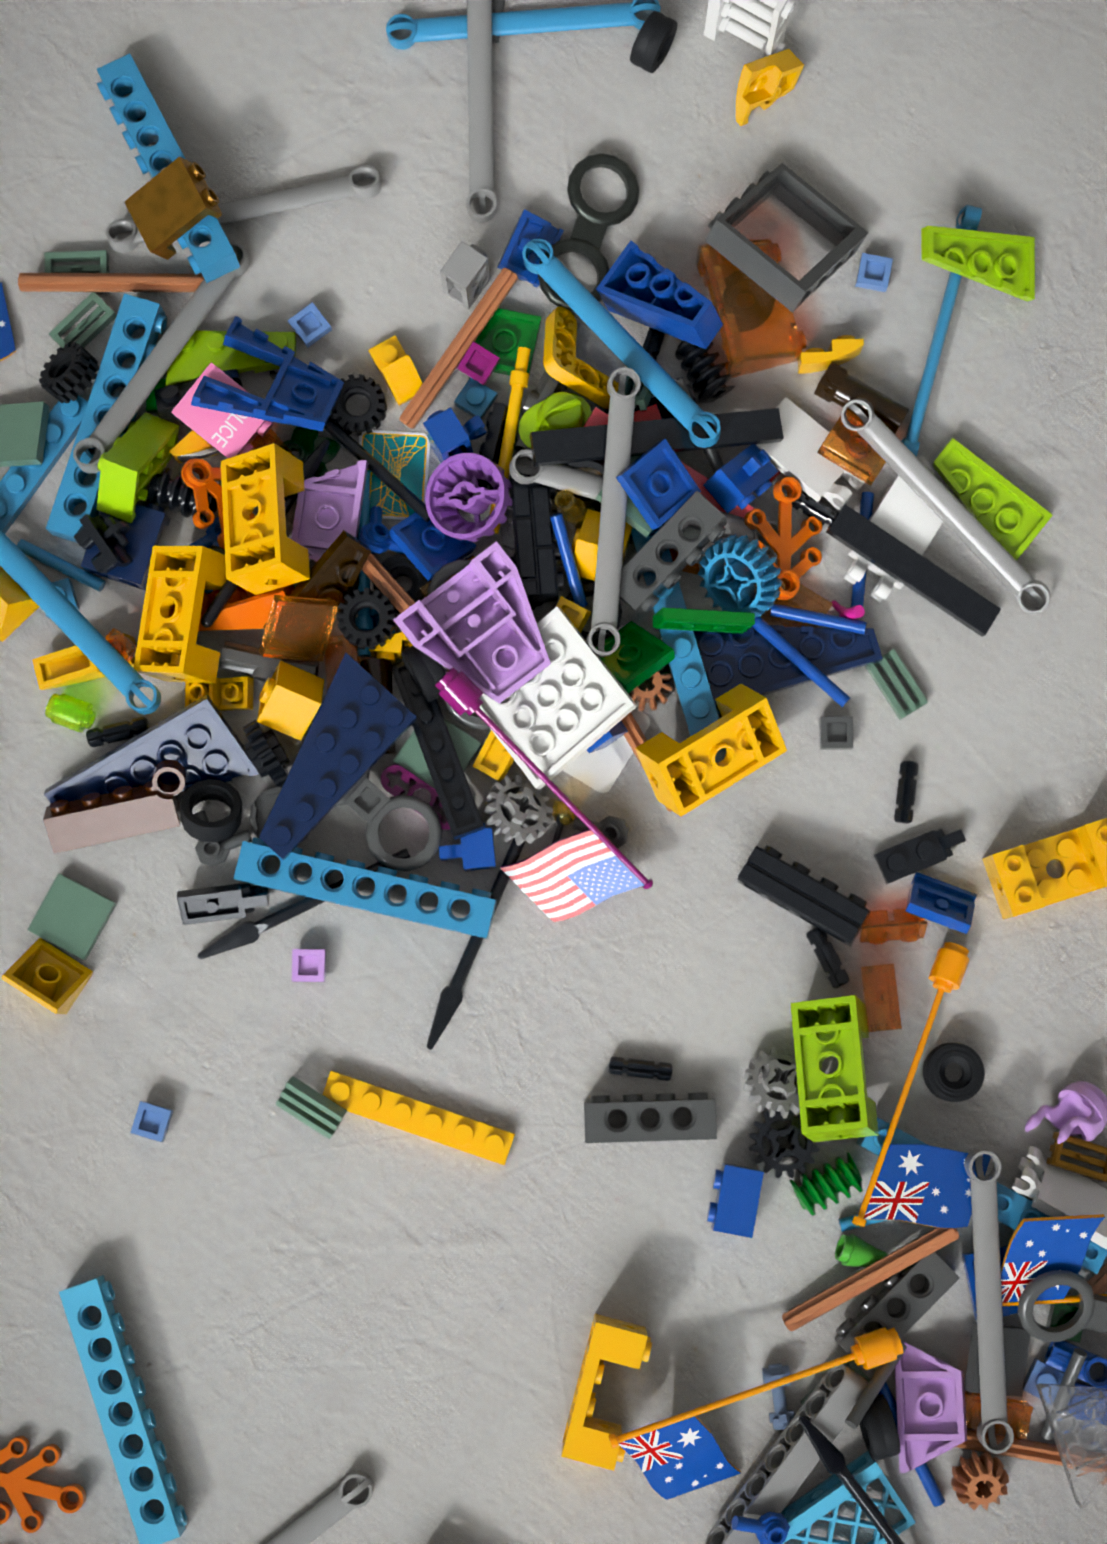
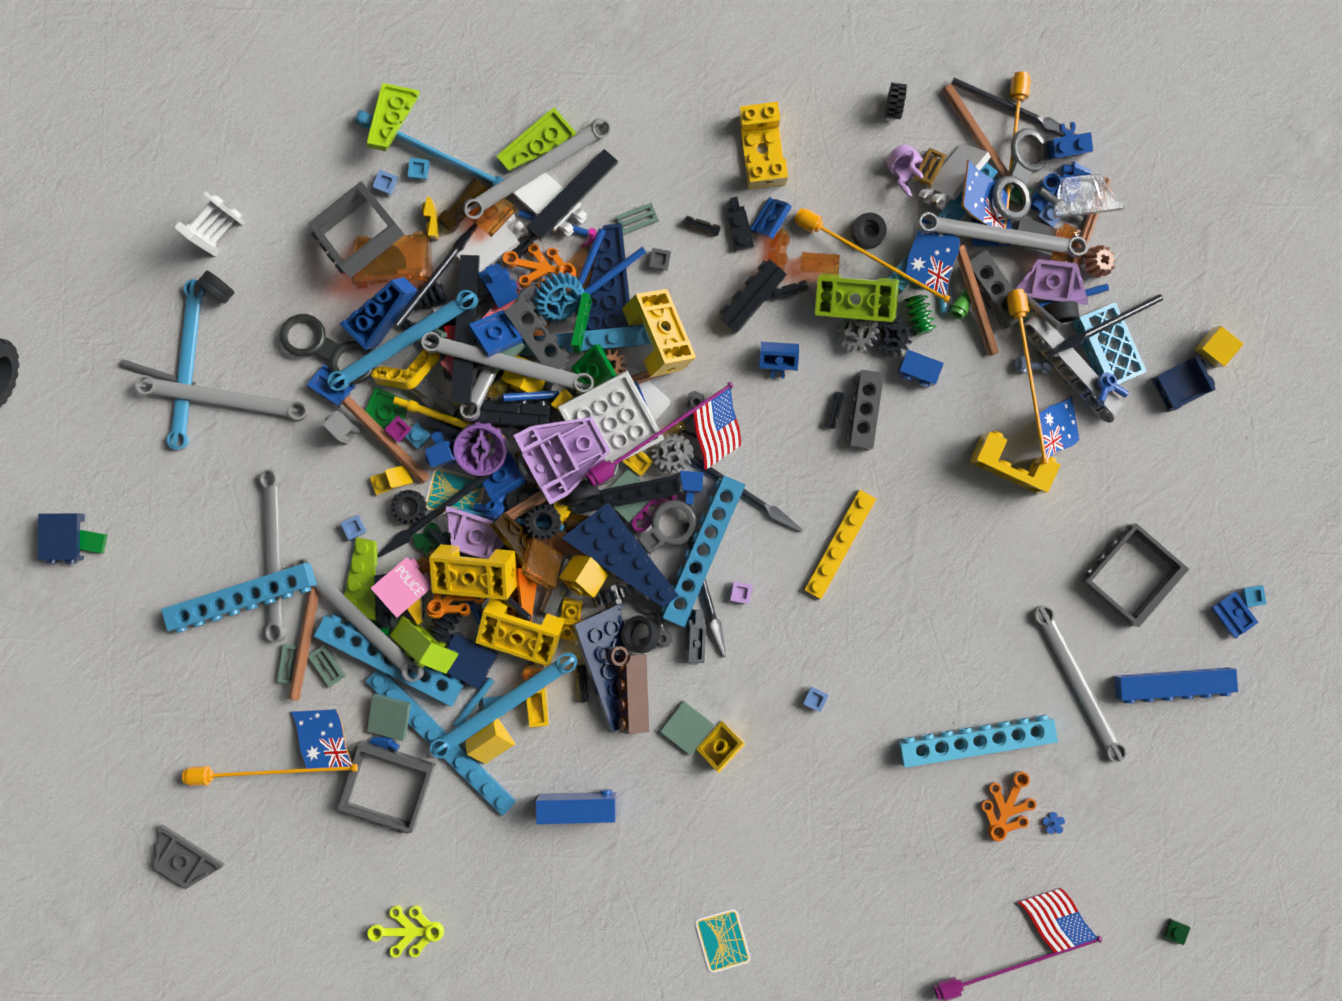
camera: 80 degrees left, 5 degrees up
(69, 372) = (357, 677): black tyre -> none
(70, 712) = (565, 709): clear neon green brick -> none
(108, 538) = (466, 668): black hips -> none
(172, 205) = (266, 596): pearl gold panel -> none
(298, 396) = (399, 538): blue wing -> none
(309, 1111) = (826, 604): sand green tile -> none
(557, 411) = (439, 389): lime piece -> none
(710, 957) = (779, 357): none -> blue brick
(765, 82) = (254, 224): yellow slope -> none
(790, 403) = (458, 246): none -> black piece
(906, 320) = (418, 169): none -> dark azure plate

